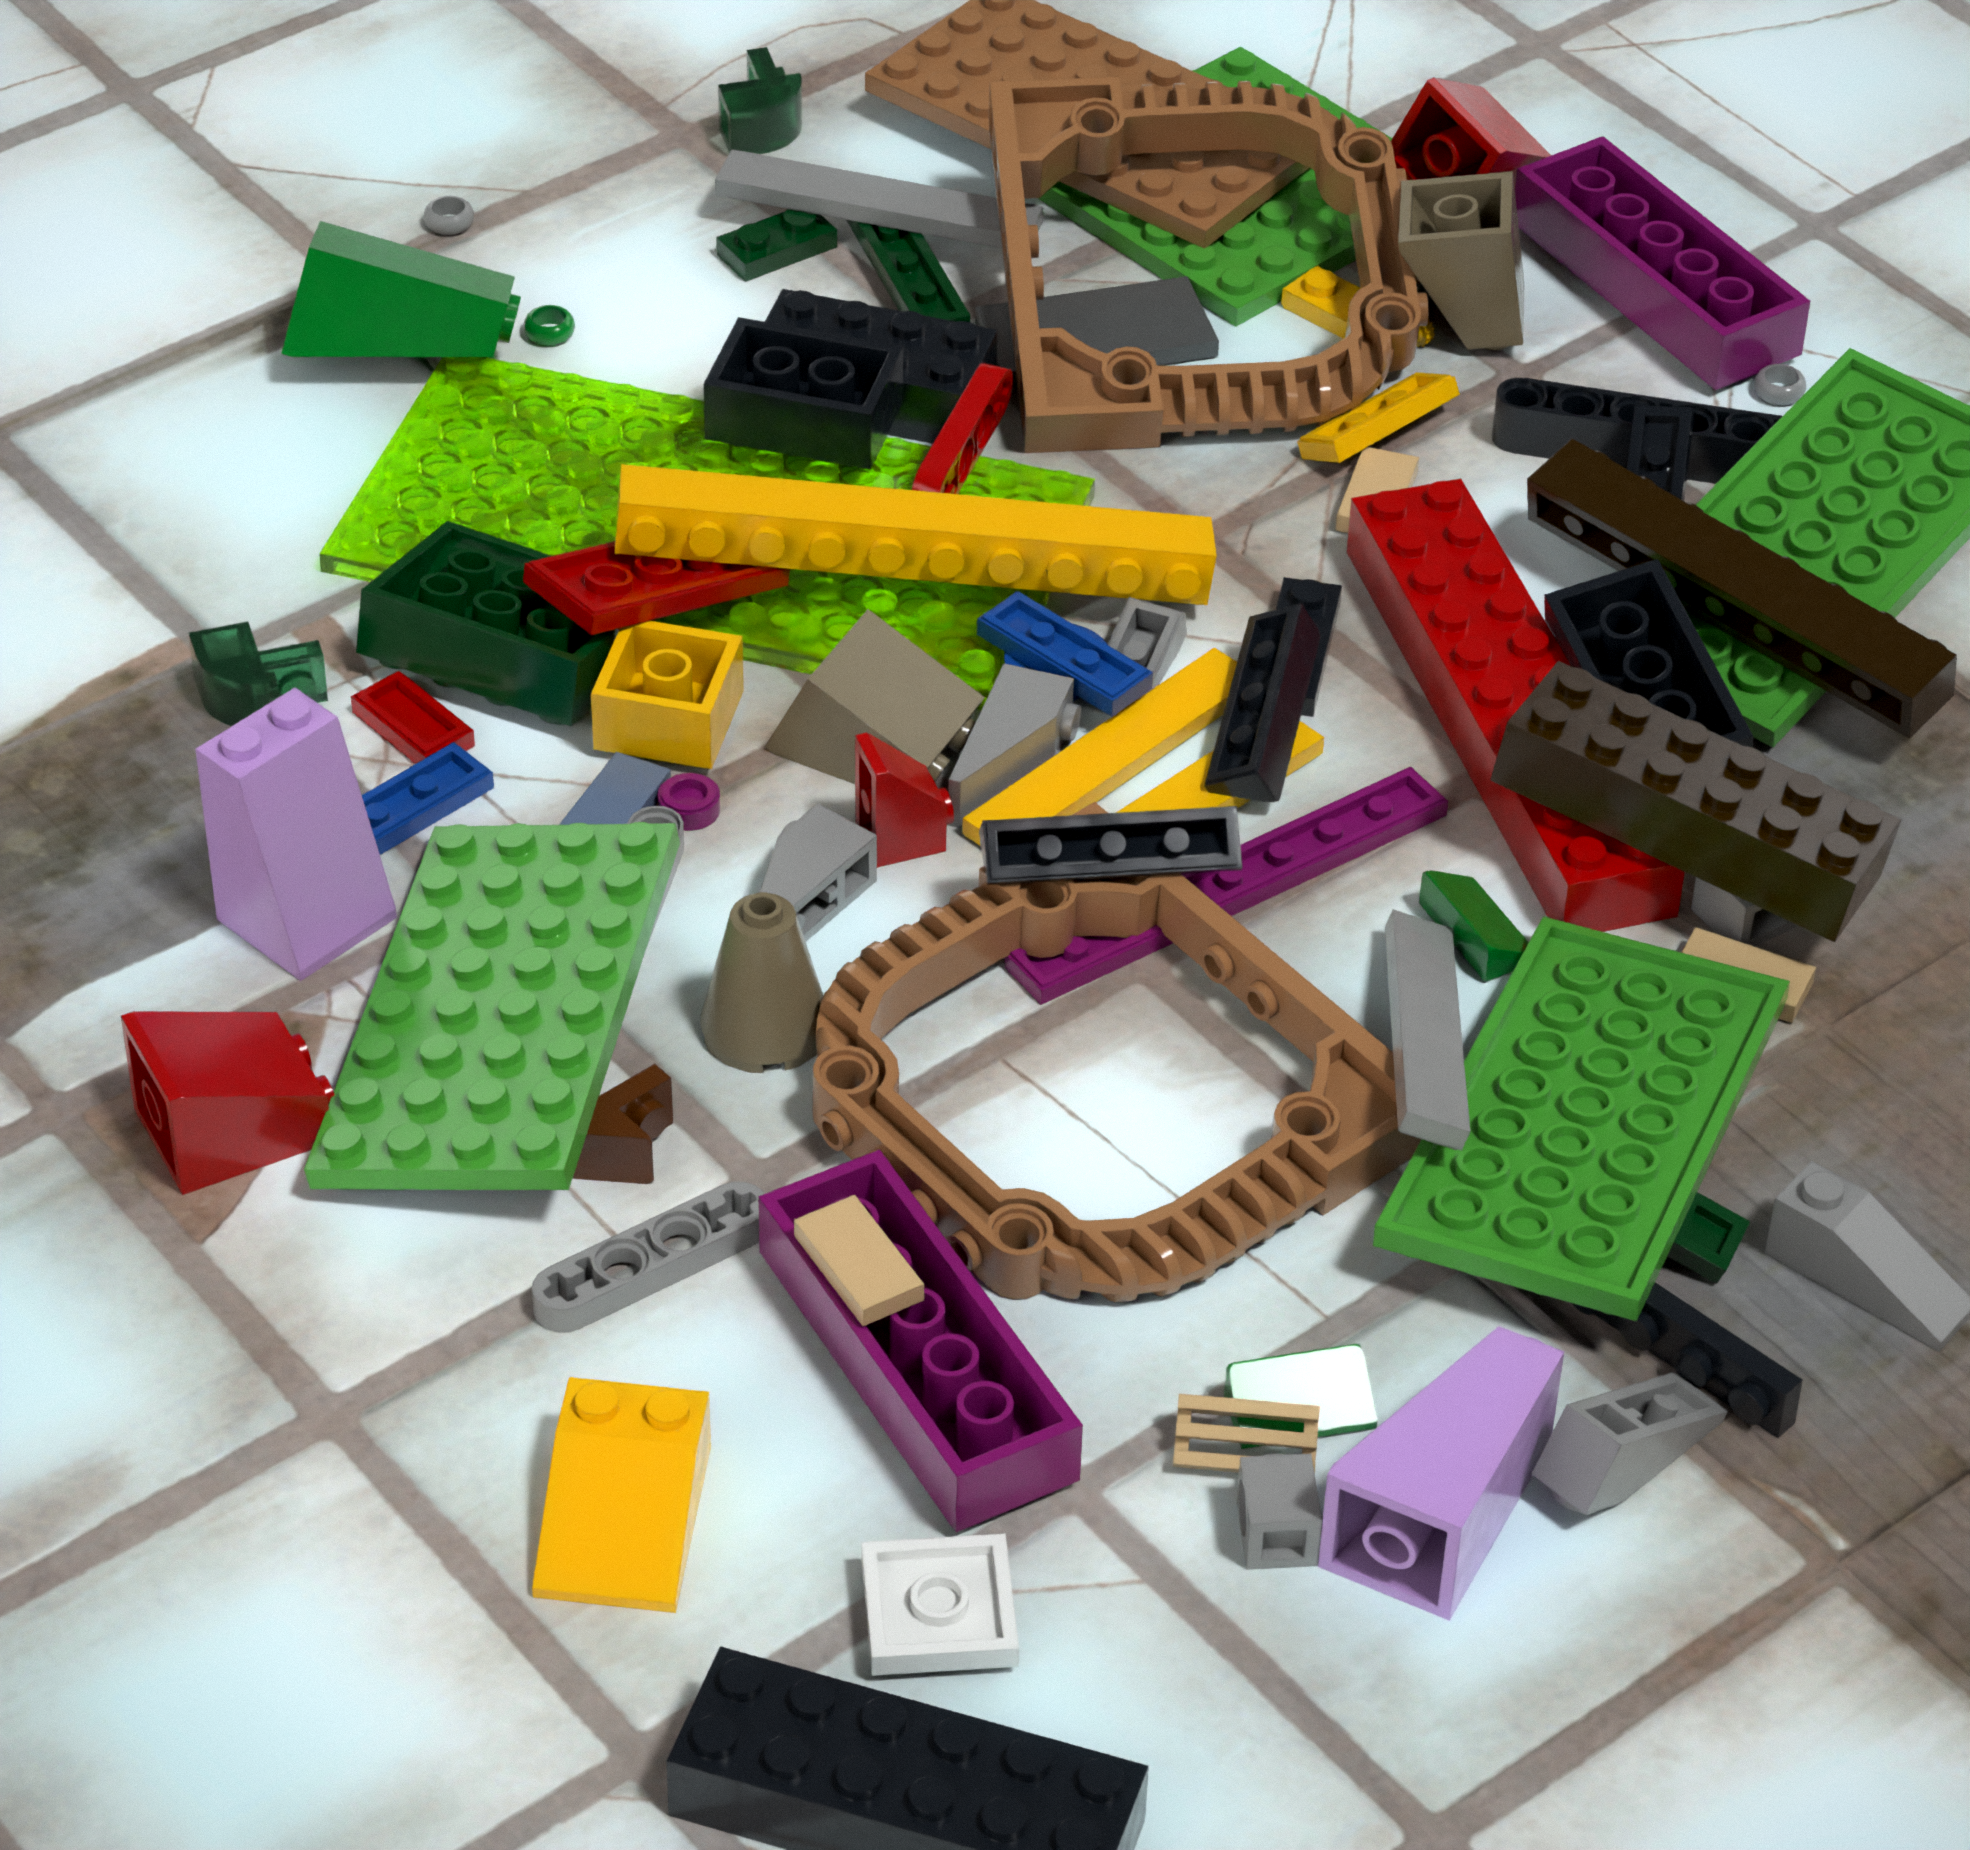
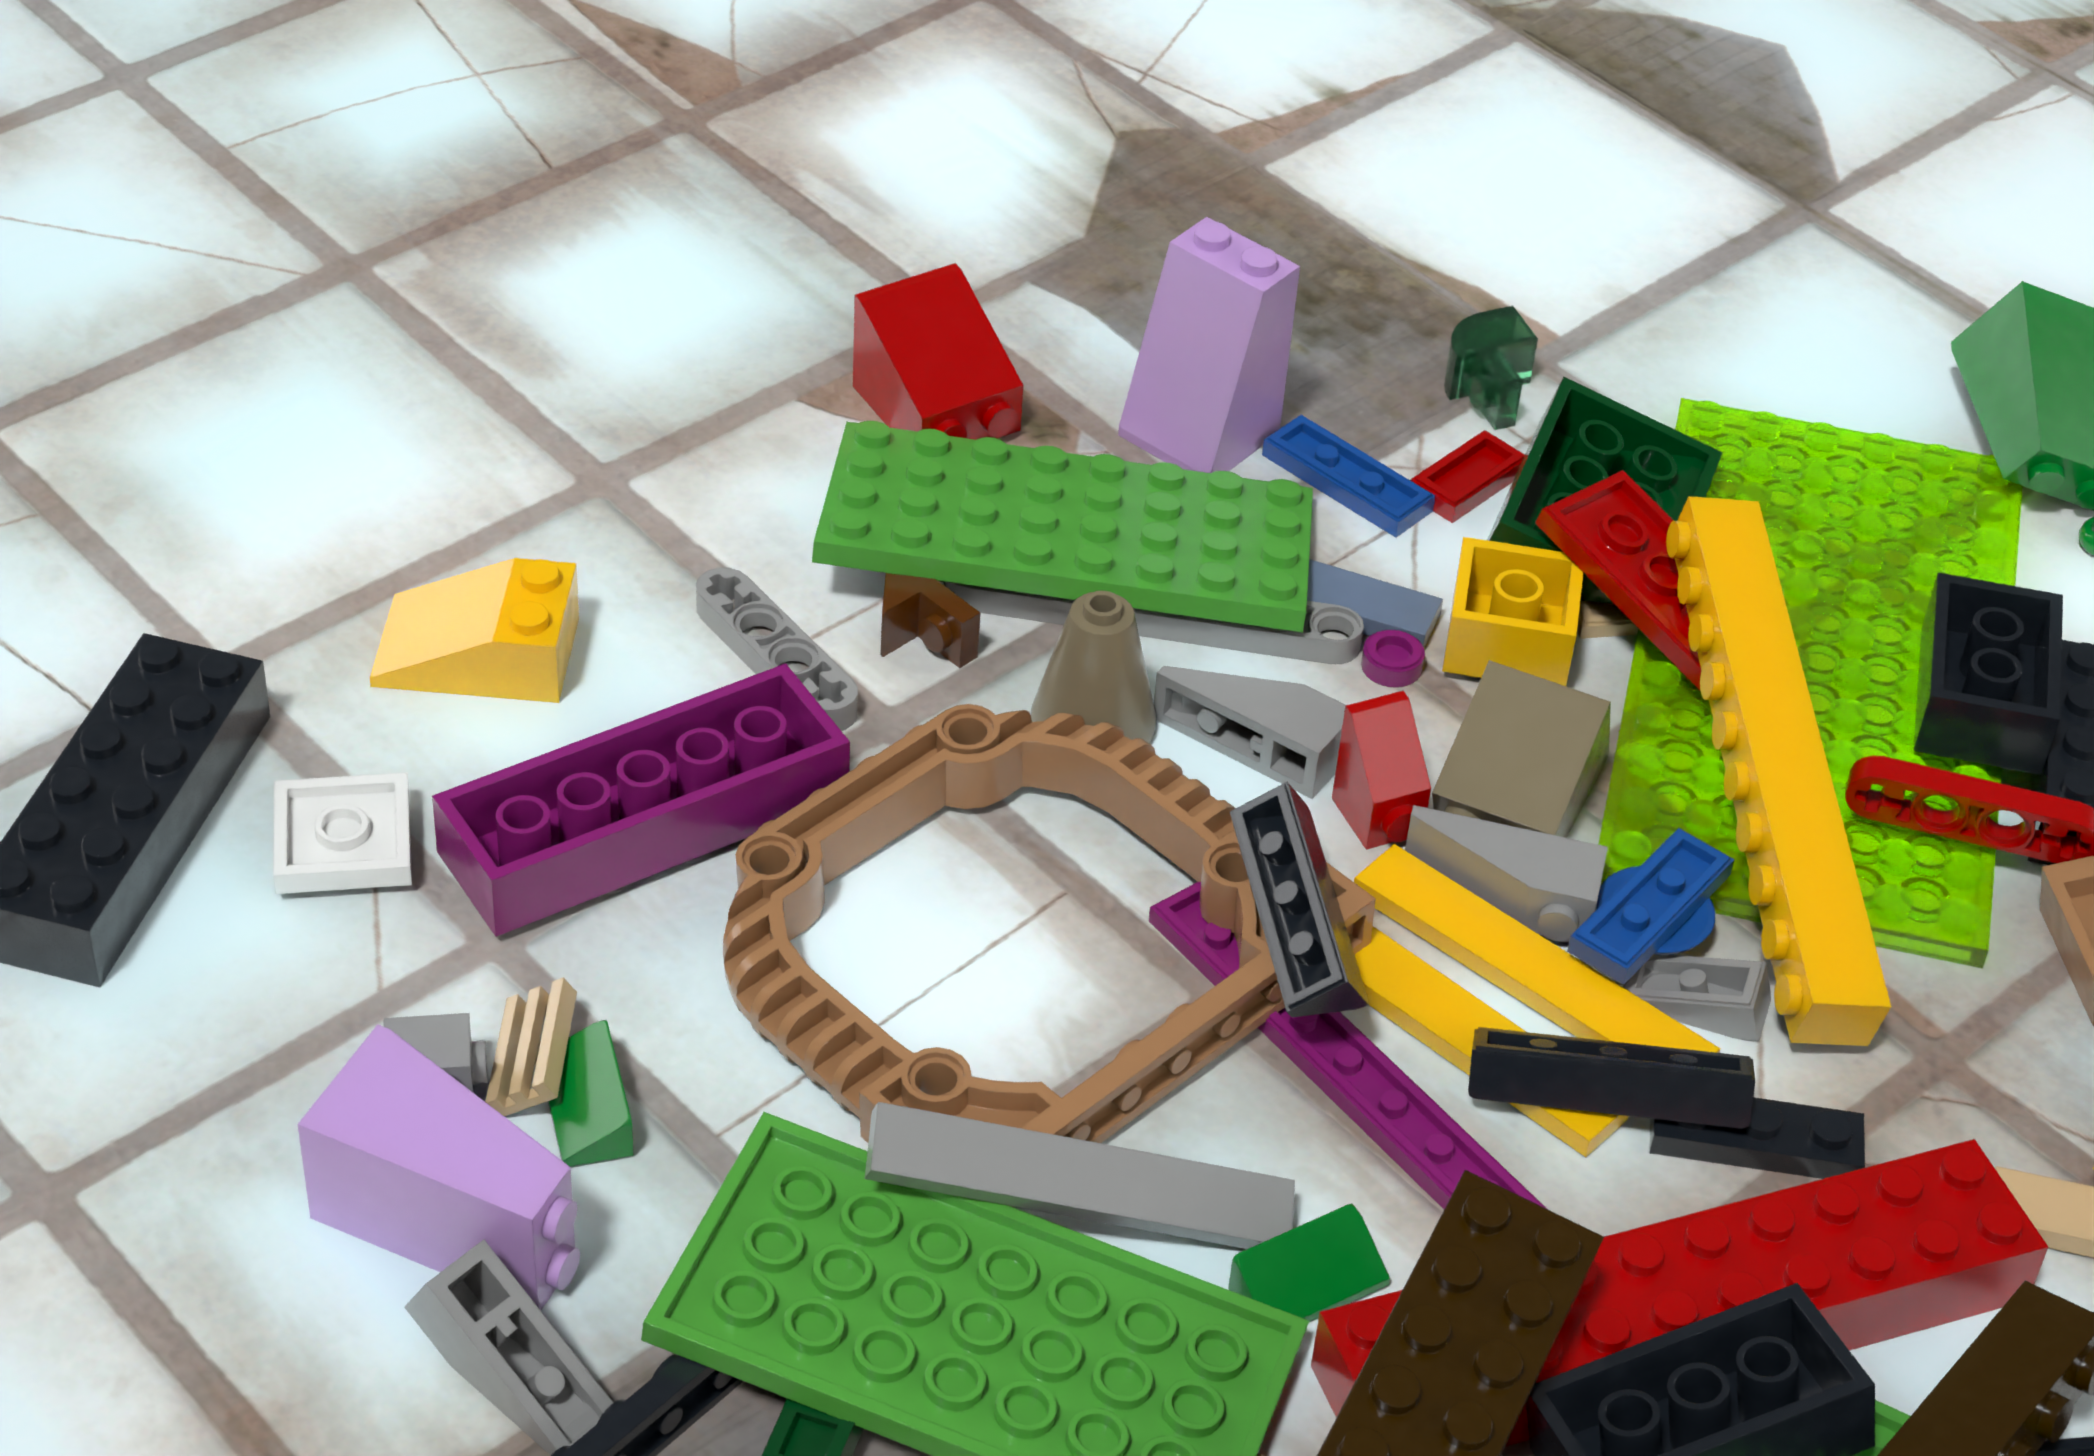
camera: 85 degrees right, 0 degrees up
(859, 1260) = (690, 718): tan tile -> none

